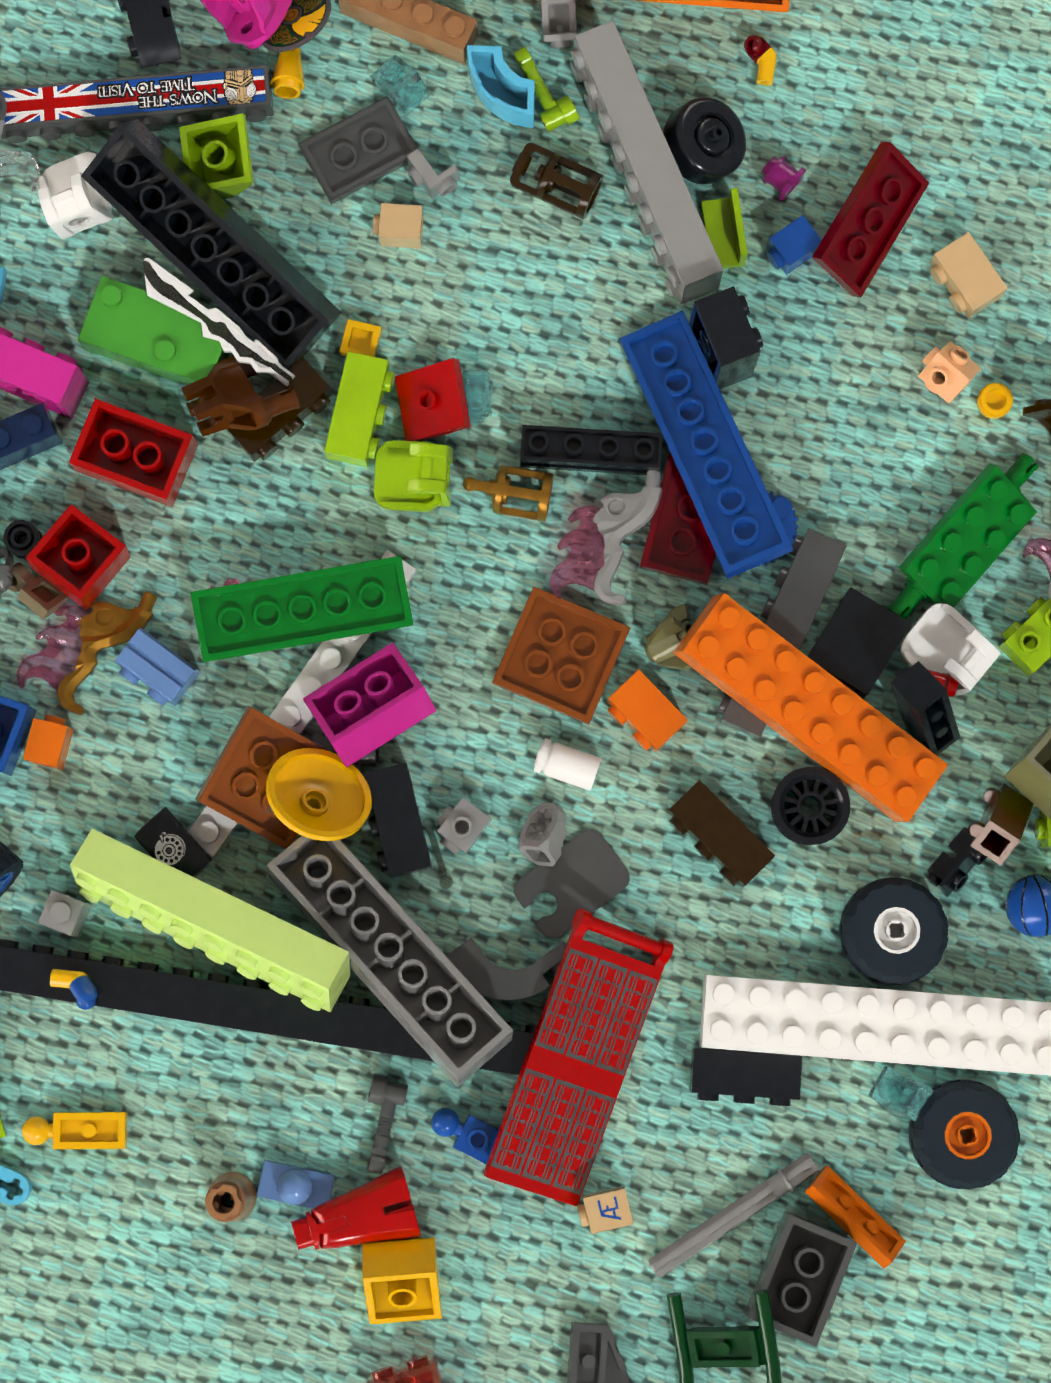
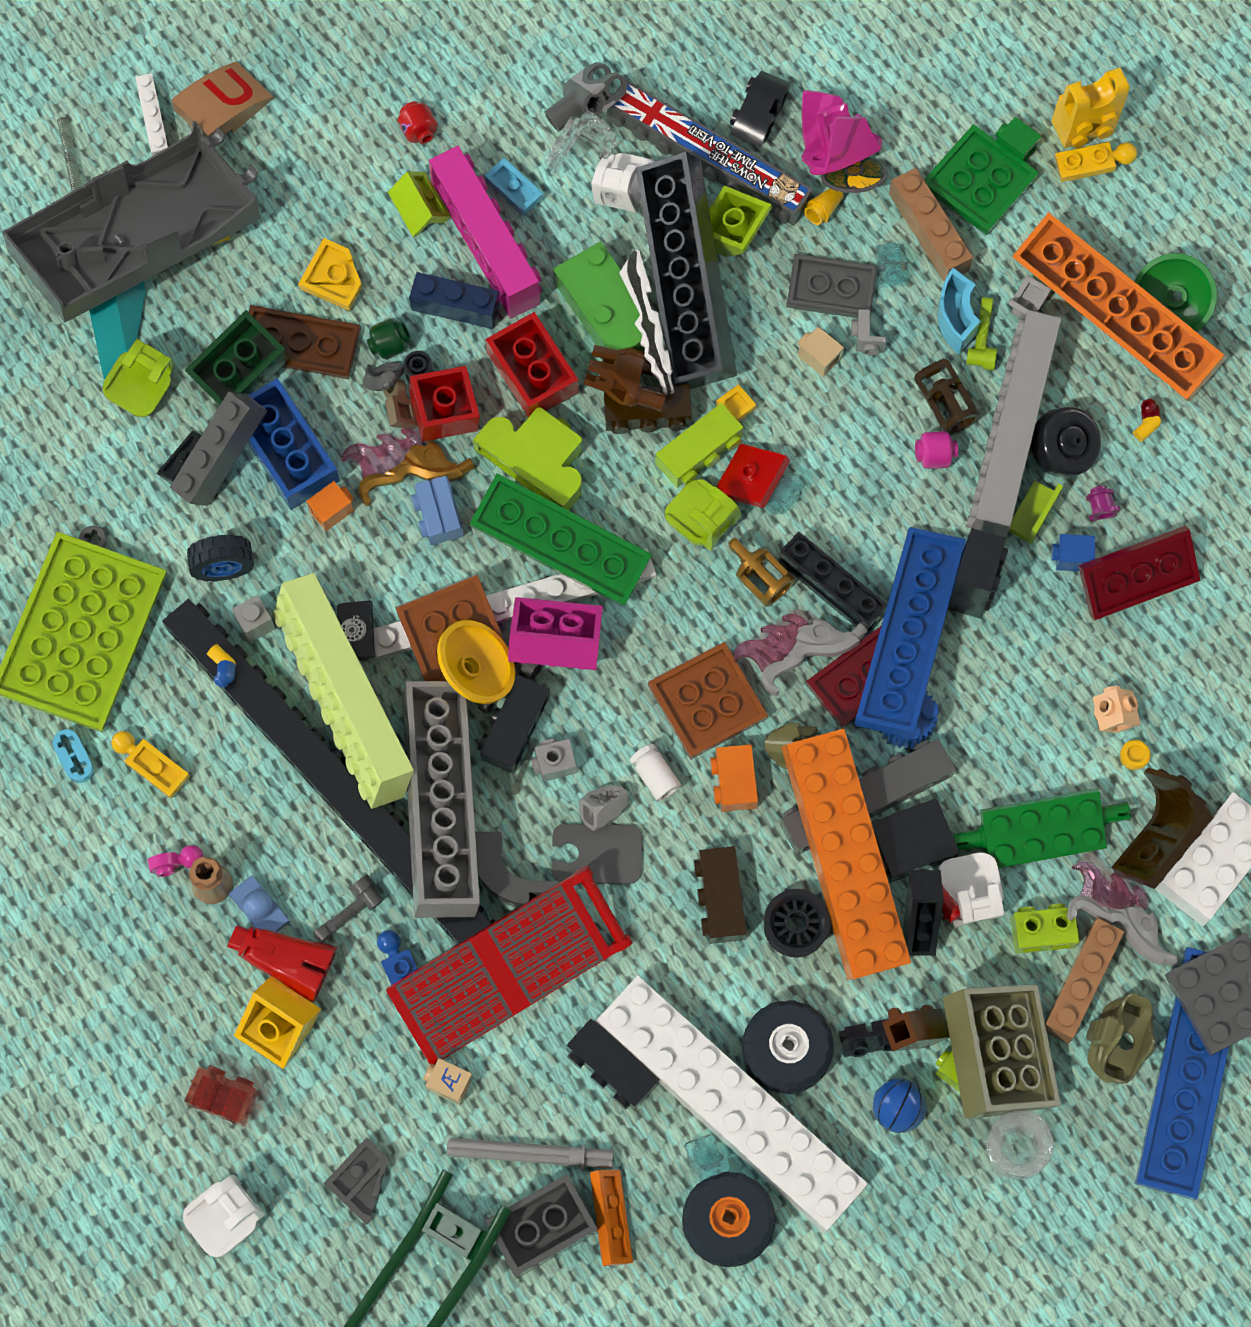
camera: 35 degrees right, 10 degrees down
(191, 1190) = (165, 863): none -> dark pink plate
(208, 539) = (535, 454): none -> lime brick
(587, 242) = (935, 450): none -> dark pink head
(967, 276) = (1178, 658): tan brick -> none

